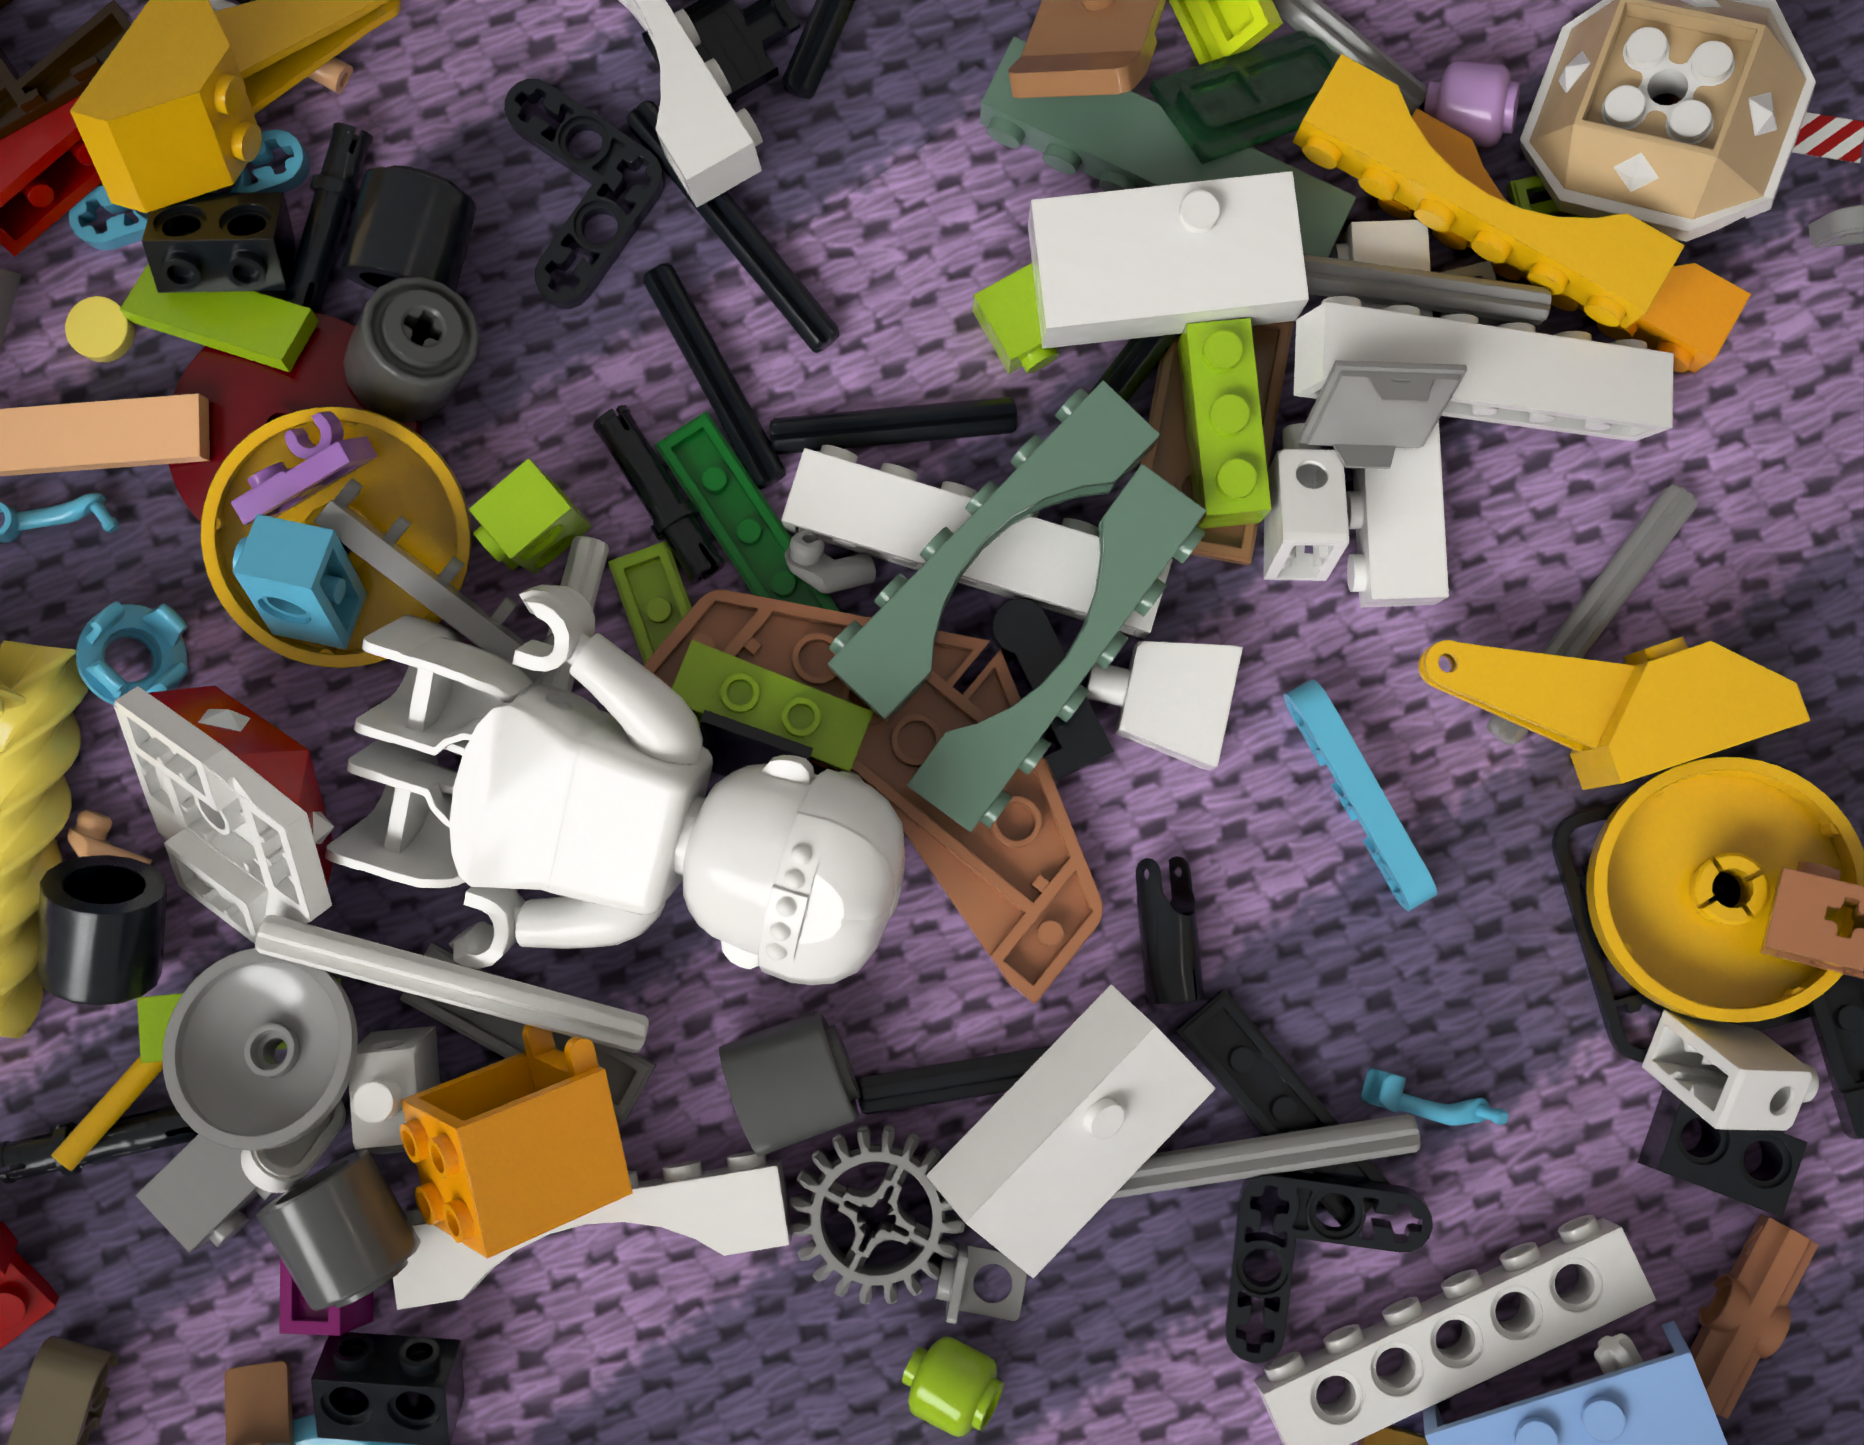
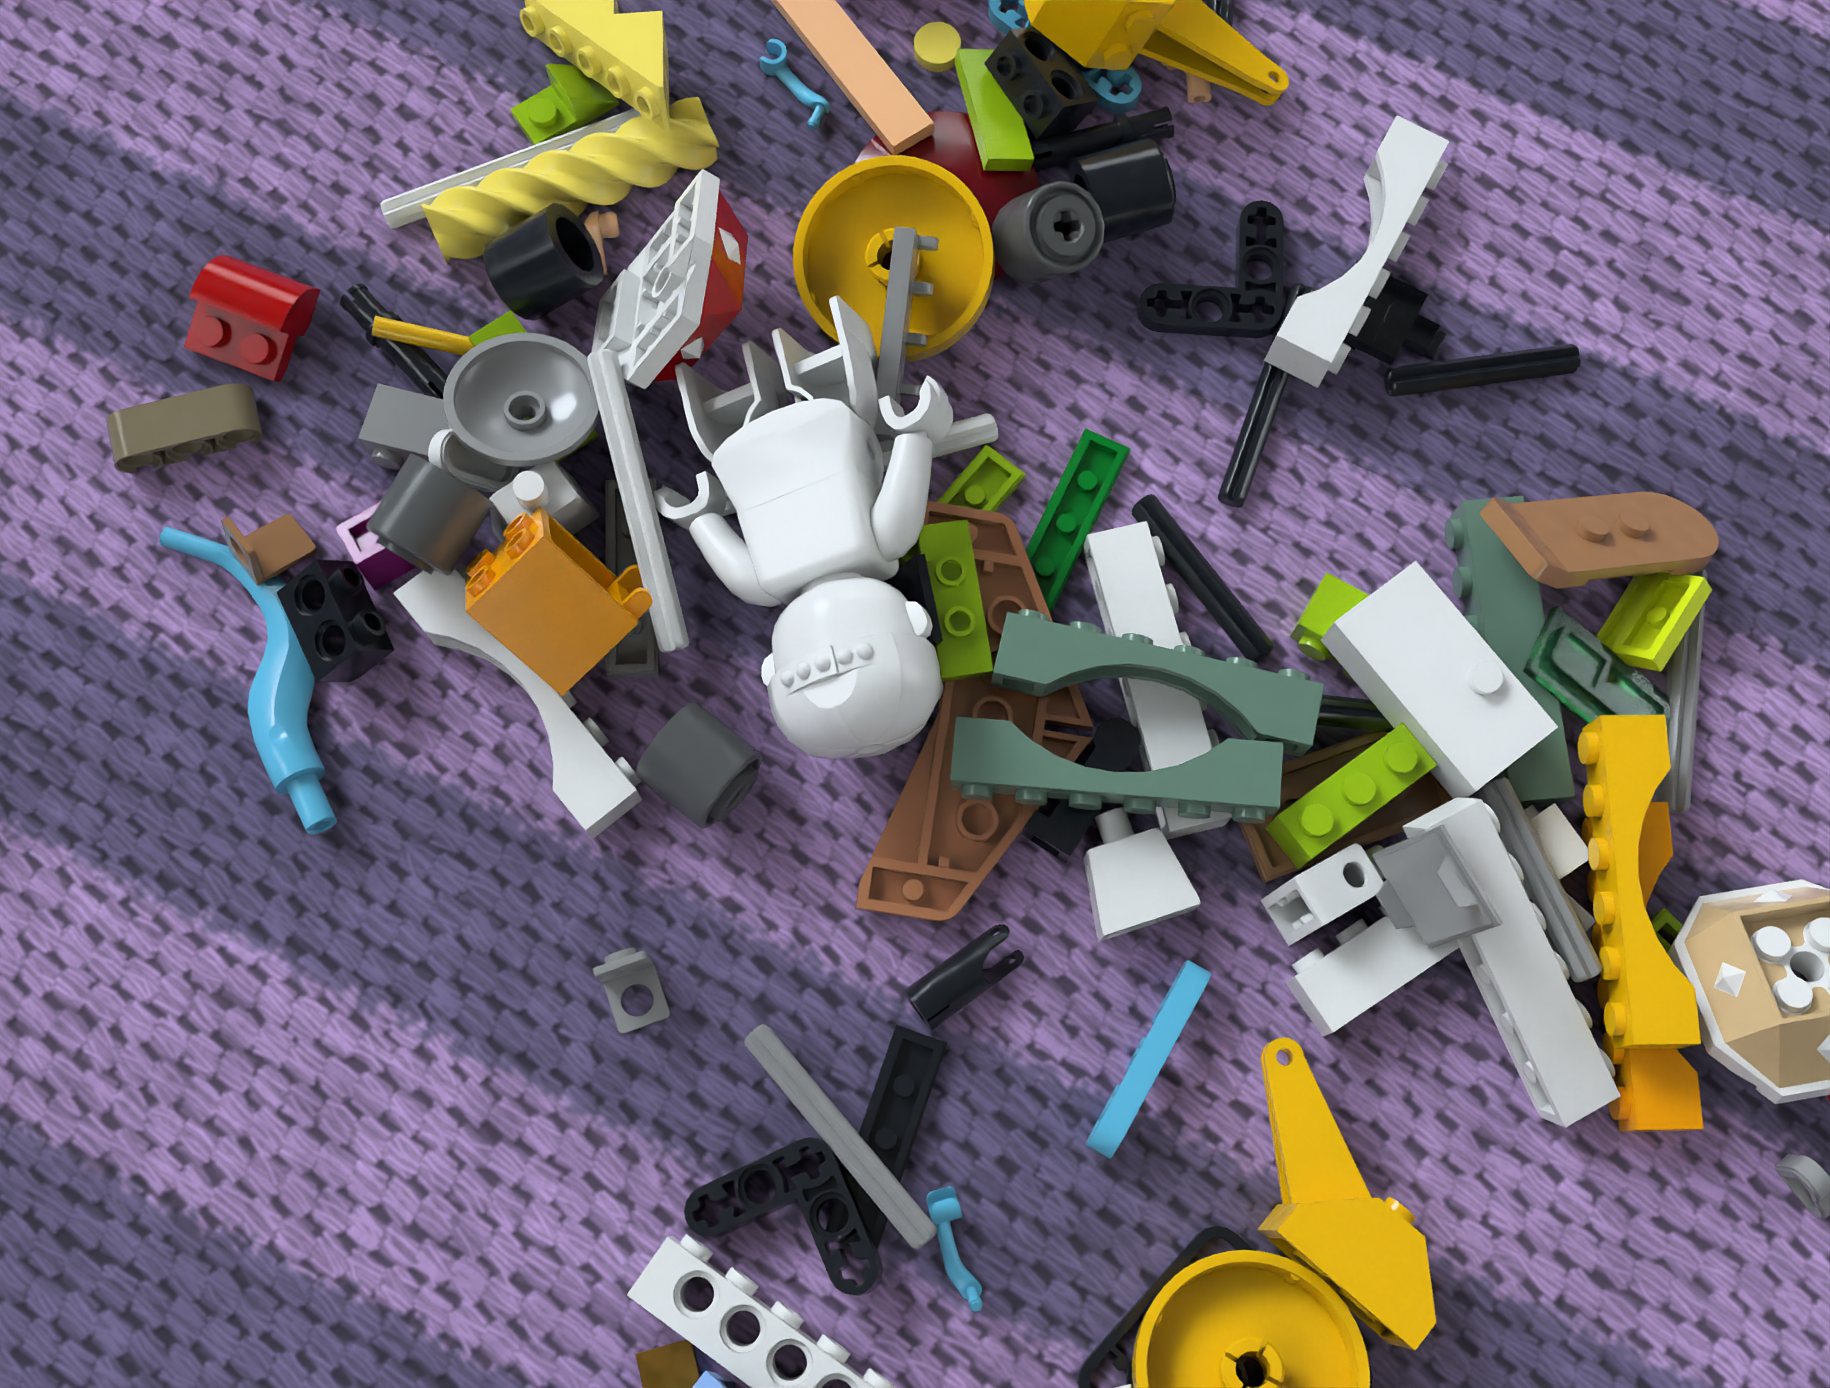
camera: 55 degrees right, 10 degrees down
(156, 628) = (762, 186): medium azure piece -> none
(280, 489) = (904, 202): medium lavender plate -> none
(300, 581) = (850, 245): medium azure brick -> none
(527, 519) = (982, 370): lime brick -> none
(671, 514) = (1045, 466): black pin -> none
(714, 375) = (1157, 441): black axle -> none
(809, 563) = (1069, 585): light grey arm -> none
(849, 1199) = (618, 884): light grey gear -> none
(944, 1081) = (783, 906): black axle -> none
(952, 1386) = (547, 1010): lime head -> none
(1070, 1132) = (778, 981): white brick -> none
(1475, 100) = (1703, 846): lavender head -> none
(1612, 587) = (1423, 1161): light grey axle -> none

